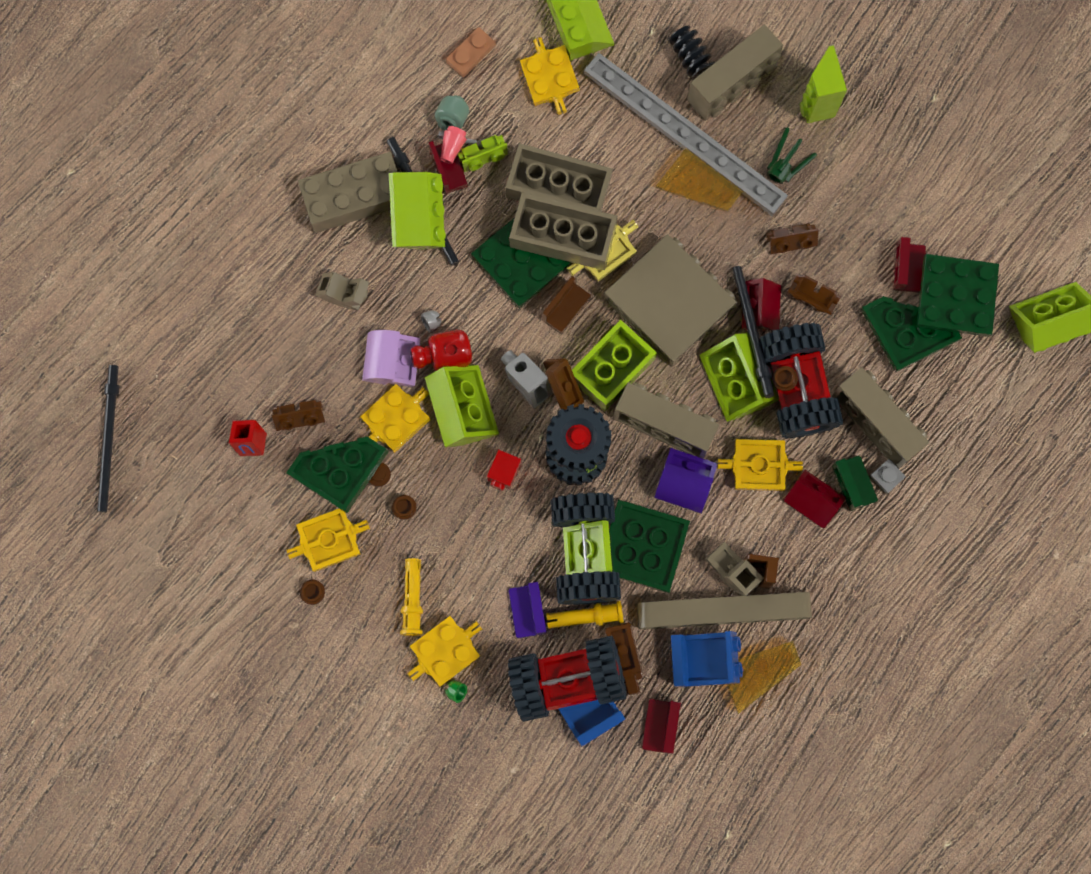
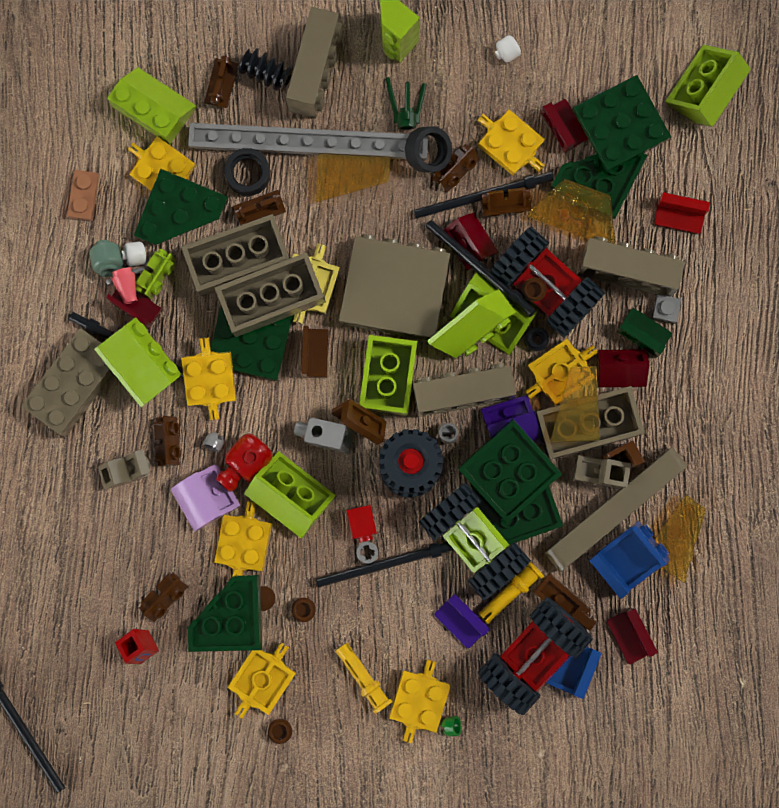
camera: 35 degrees left, 5 degrees up
(401, 284) = (168, 430): none -> reddish brown hinge
(464, 265) = (209, 378): none -> yellow plate
(477, 125) = (134, 253): none -> white piece
(498, 497) = (362, 558): none -> light grey bush
(538, 113) = (177, 208): none -> dark green plate
(547, 536) = (434, 550): none -> black bar
(608, 158) = (259, 207): none -> reddish brown hinge
(617, 106) = (247, 153): none -> black tyre
(631, 446) = (448, 429): none -> light grey hinge
(648, 39) = (221, 82): none -> reddish brown hinge
(657, 512) = (509, 470): none -> dark green plate
(712, 371) = (474, 325): none -> lime slope
(750, 502) = (579, 408): none -> clear yellow wing
(752, 522) = (617, 422): none -> dark tan brick
(762, 417) = (539, 332): none -> black plate
(793, 216) = (444, 148): none -> black tyre
(844, 291) = (528, 182): none -> black bar
(853, 250) = (511, 142): none -> yellow plate
(868, 341) = (577, 211): none -> clear yellow wing
(905, 172) = (507, 49): none -> white piece
(957, 406) = (681, 213): none -> red panel

